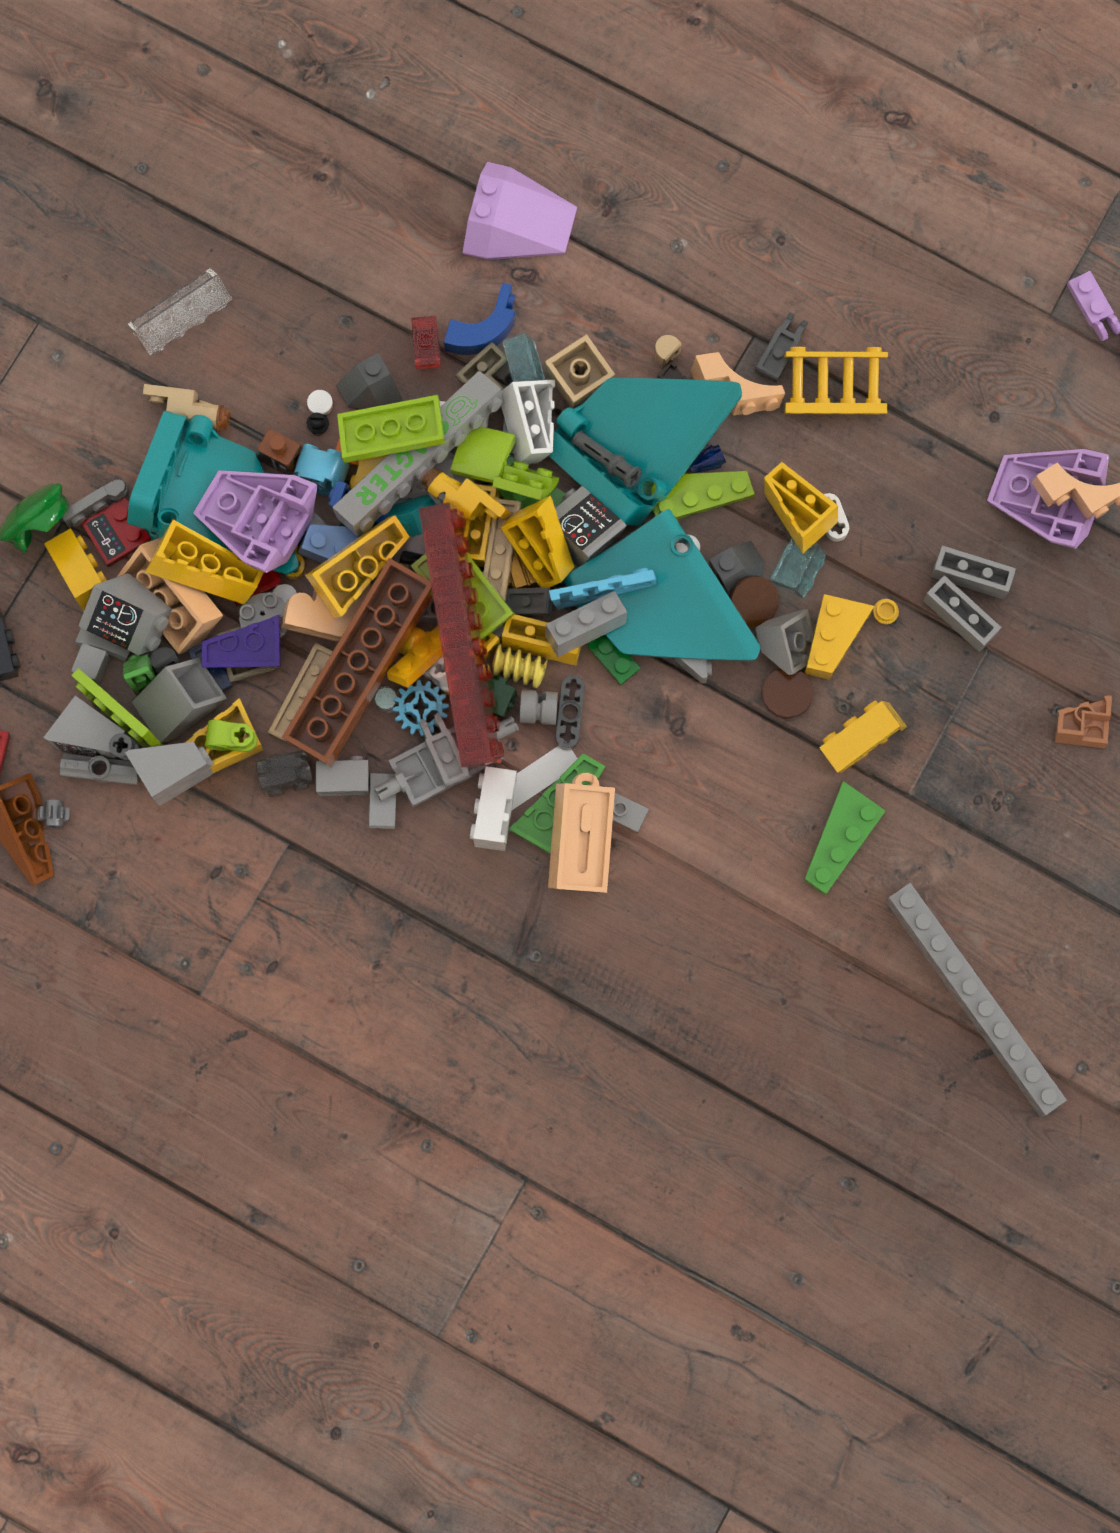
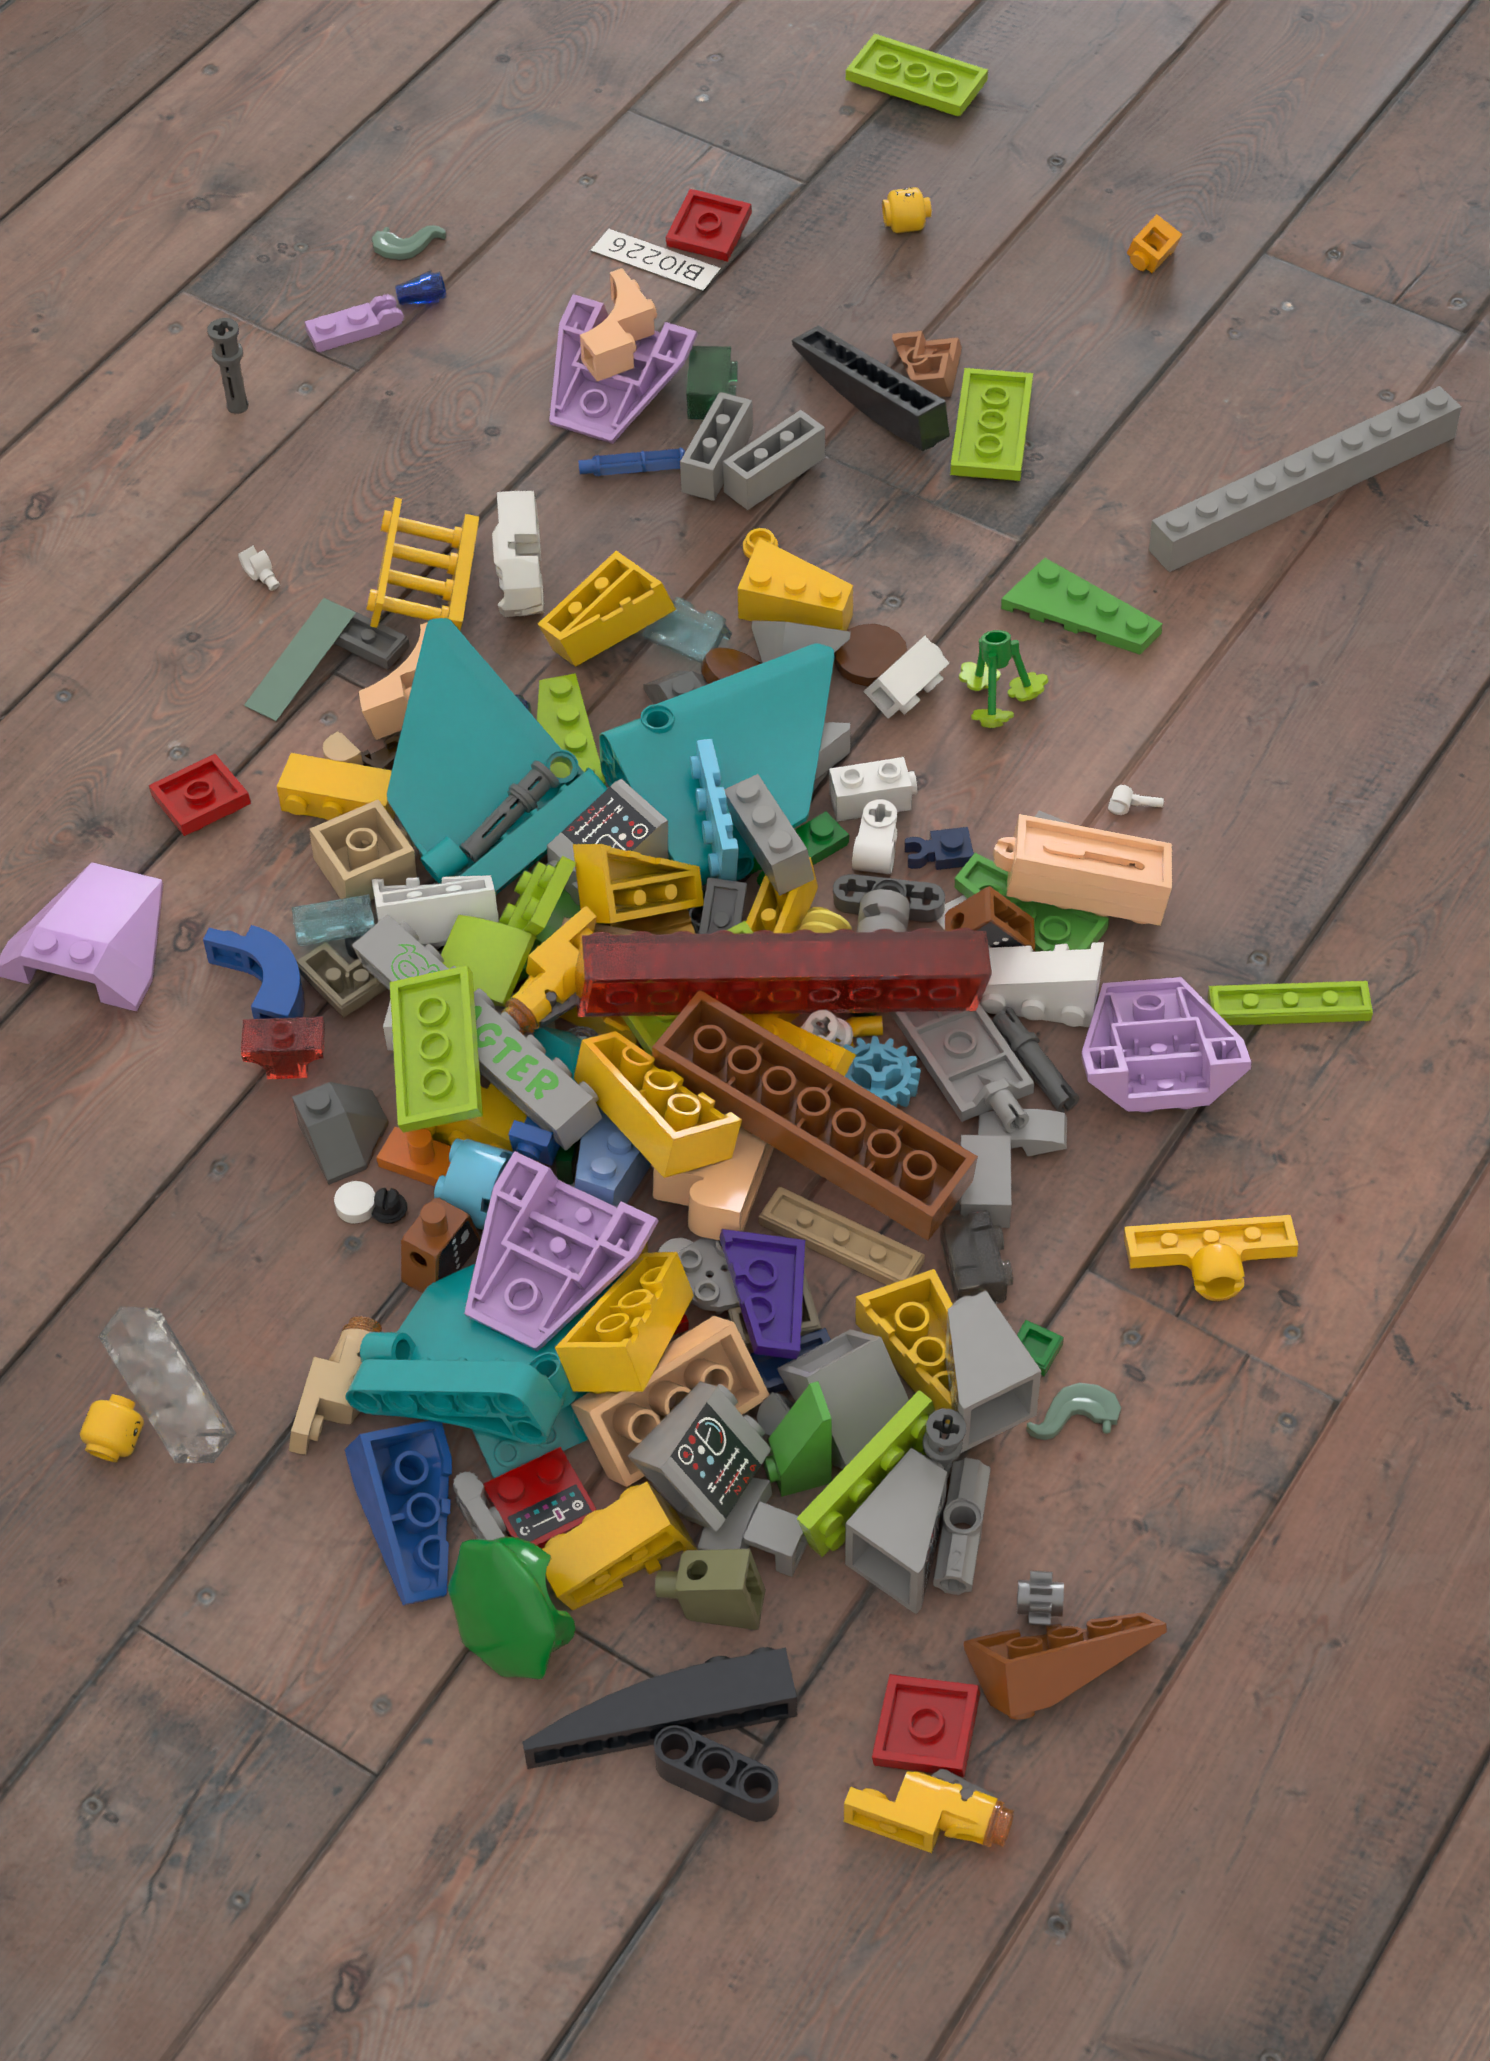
camera: 85 degrees left, 25 degrees down
(53, 631) = (716, 1587): none -> olive torso
(106, 457) = (404, 1494): none -> blue wedge
(153, 286) = (111, 1428): none -> yellow head
(194, 839) = (1080, 1399): none -> sand green piece
(225, 736) = (924, 1299): lime piece -> none
(228, 811) = (1041, 1344): none -> green tile
(297, 917) = (1212, 1249): none -> yellow plate
(440, 808) = (1027, 1050): none -> dark grey pin
(444, 752) = (950, 1032): light grey hinge -> none
(451, 883) = (1160, 1046): none -> lavender wedge
(496, 974) = (1292, 1002): none -> lime tile
(529, 763) = (992, 912): none -> dark orange torso
(611, 701) = (876, 838): none -> white piece
(616, 749) = (945, 848): none -> dark blue plate
(634, 264) = (199, 794): none -> red plate
(639, 346) = (330, 787): none -> yellow brick
(659, 696) = (859, 784): none -> white brick
(663, 865) = (1124, 797): none -> white hand
(756, 311) = (299, 659): none -> sand green sticker
(758, 716) = (906, 677): none -> white brick
(768, 771) = (994, 653): none -> plant
(842, 273) = (258, 567): none -> white piece
(849, 433) = (518, 554): none -> white connector
(861, 735) = (940, 565): yellow wedge -> none
(964, 523) = (632, 462): none -> blue piece
(1014, 218) = (227, 355): none -> dark grey pin
(1020, 771) = (991, 424): none -> lime plate
(1045, 565) = (708, 374): none -> clear green brick
(1048, 680) = (876, 389): none -> black slope

